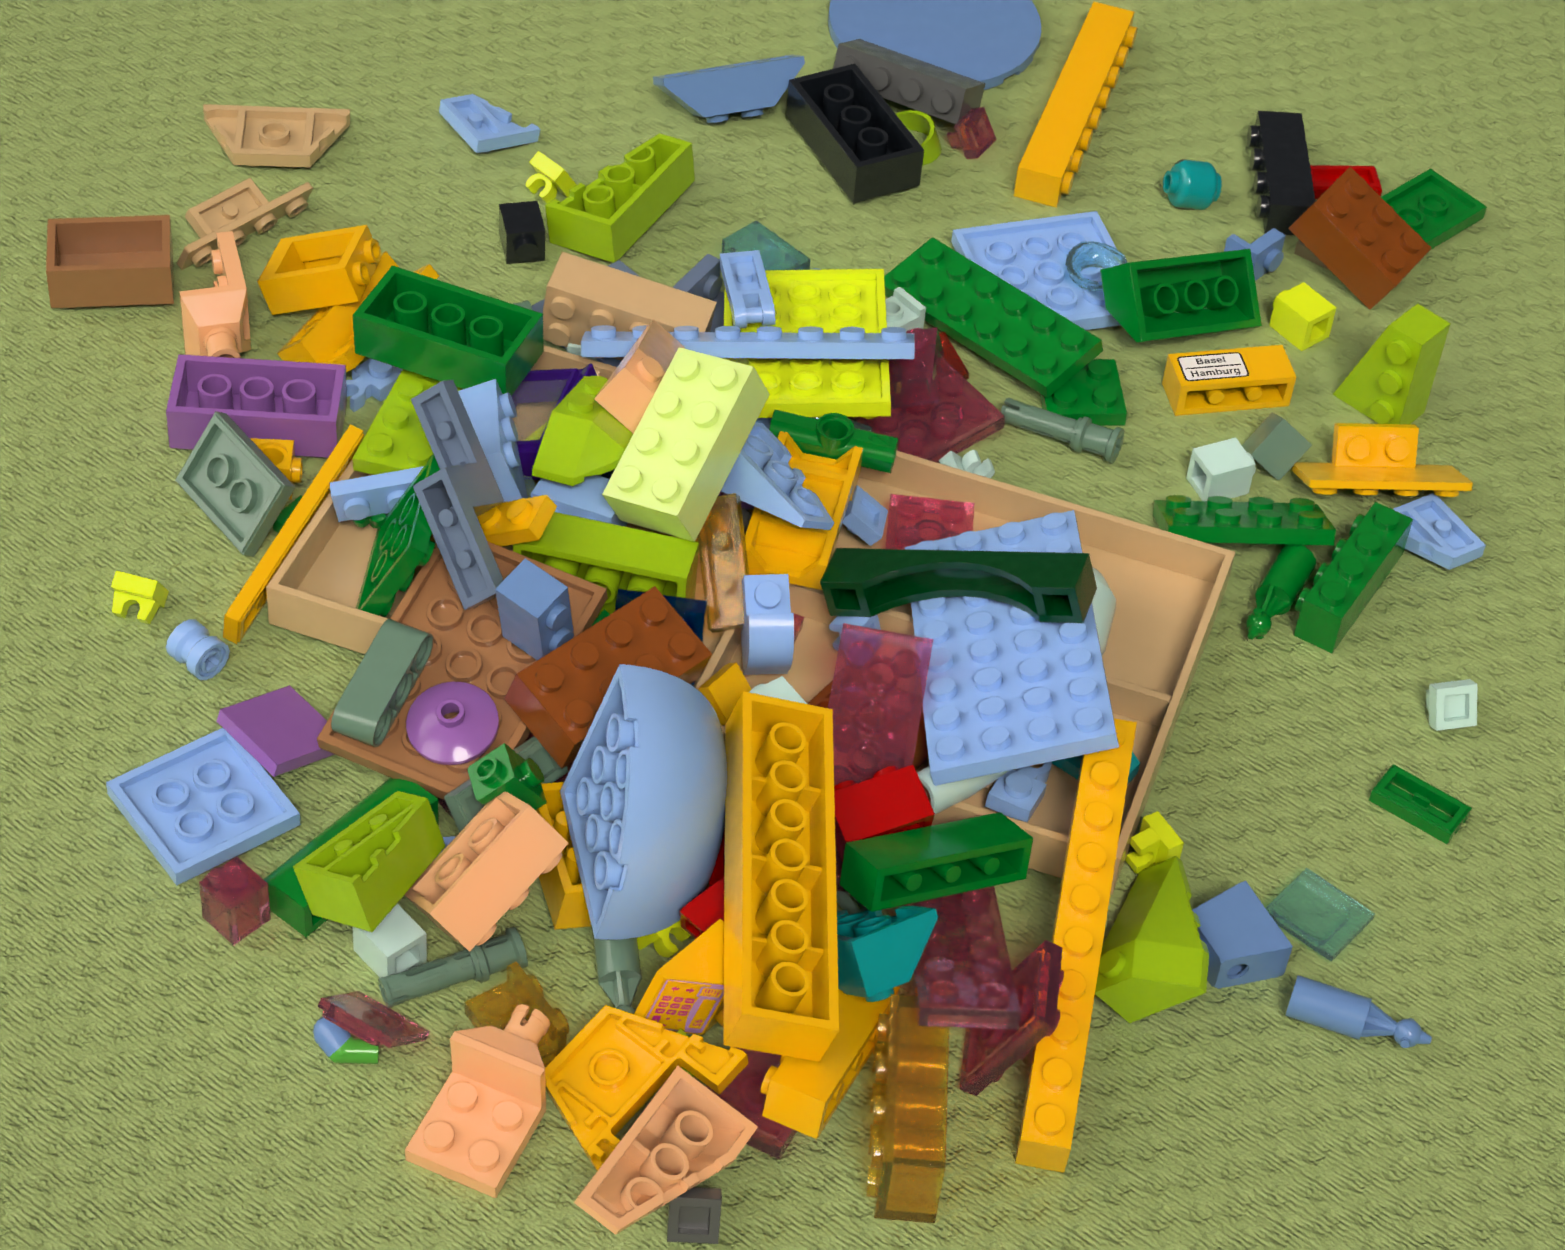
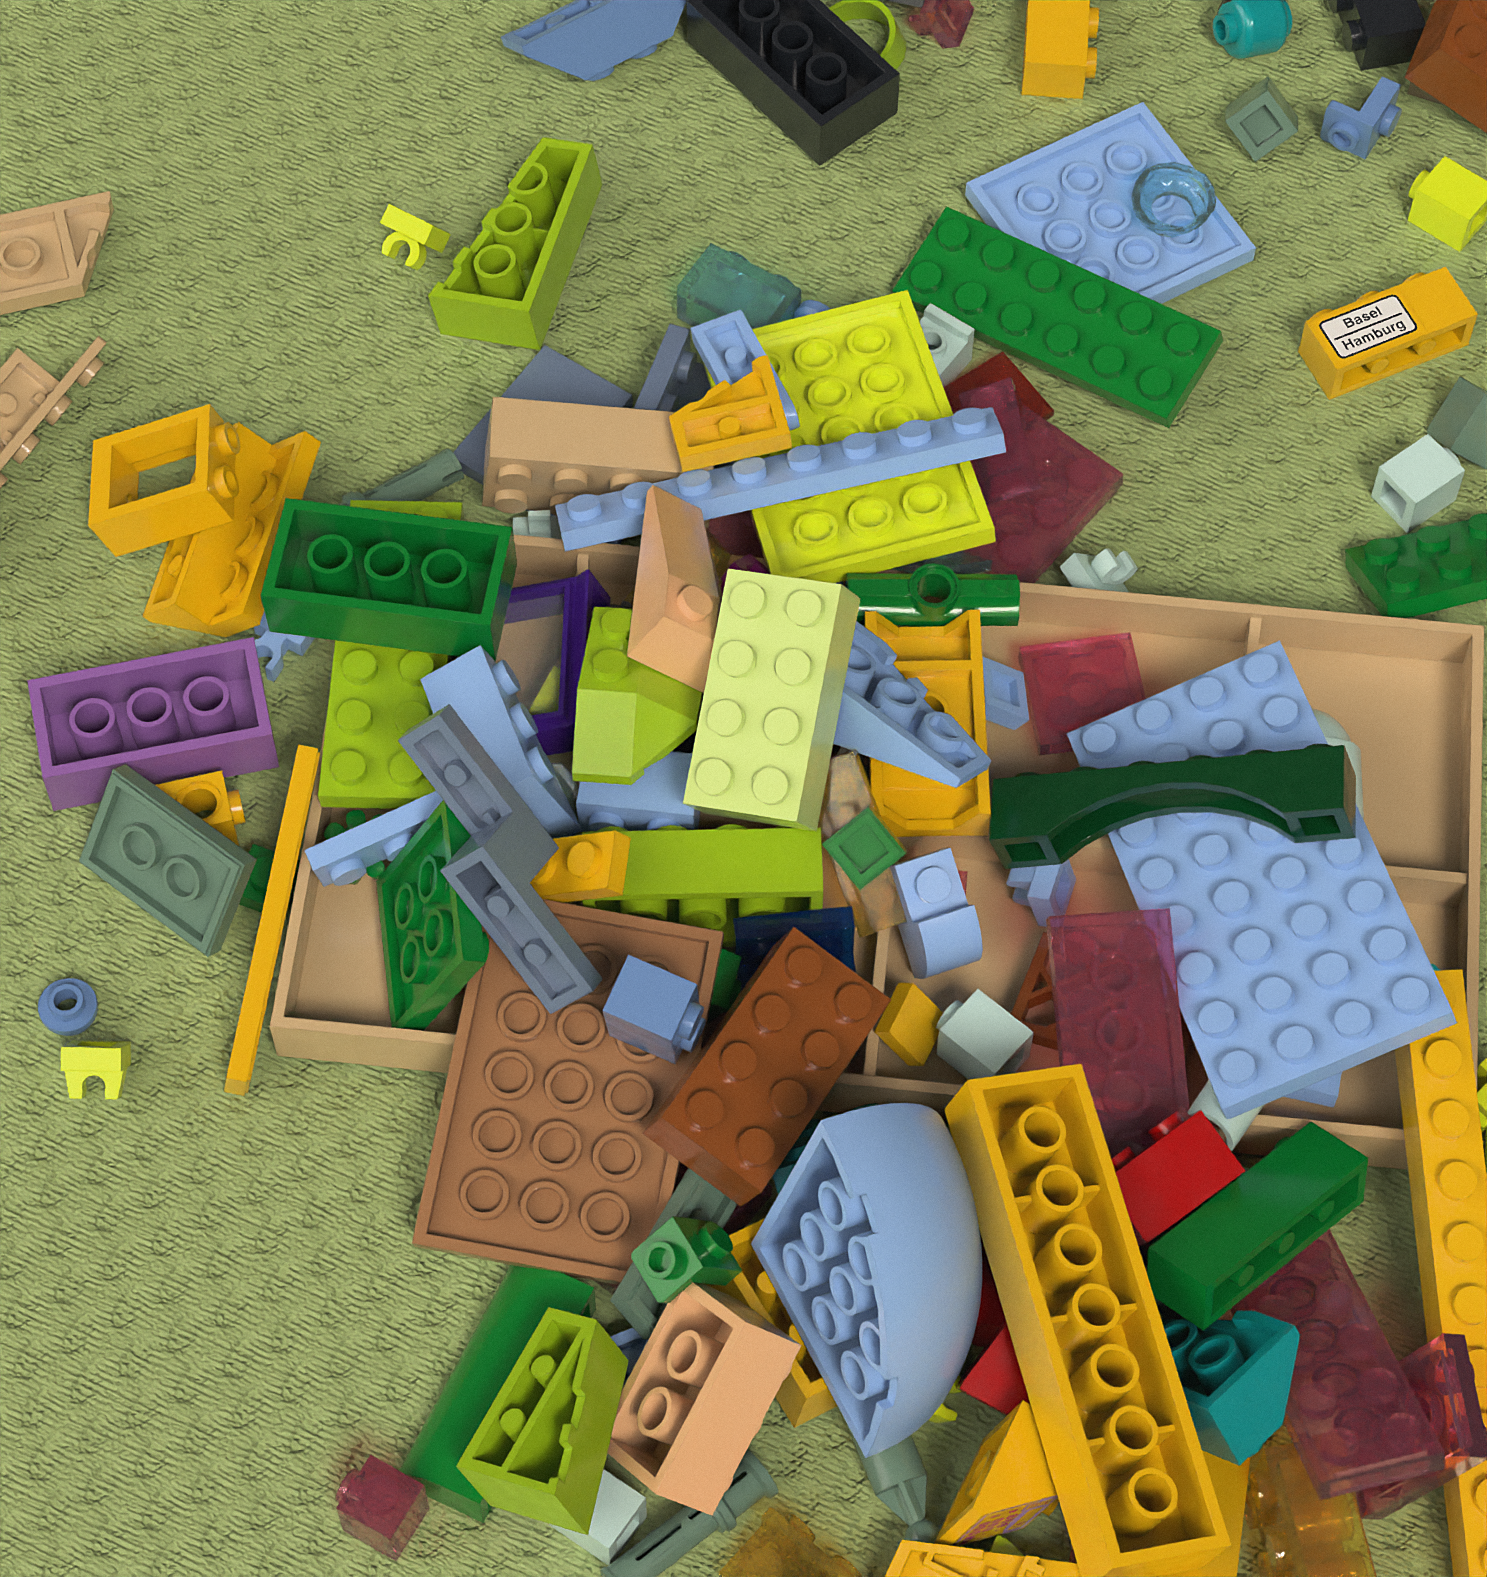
camera: 10 degrees left, 15 degrees up
(133, 559) = (70, 1021): none -> medium blue plate
(201, 653) = (203, 1130): light blue wheel -> none
(202, 805) = (290, 1367): light blue plate -> none
(218, 317) = (58, 605): light nougat plate -> none
(276, 729) = (350, 1228): medium lavender tile -> none
(382, 683) = (477, 1150): sand green beam -> none
(454, 739) = (590, 1208): medium lavender dish -> none
(485, 125) = (295, 165): light blue wing -> none
(522, 232) = (404, 336): black brick -> none
(724, 303) = (732, 421): none -> yellow wing
(726, 561) = (864, 847): none -> green tile
(1079, 433) = (1223, 470): sand green pin -> none
(1092, 394) = (1219, 410): green plate -> none
(1180, 237) = (1261, 119): none -> sand green panel
(1183, 295) = (1296, 219): green slope -> none

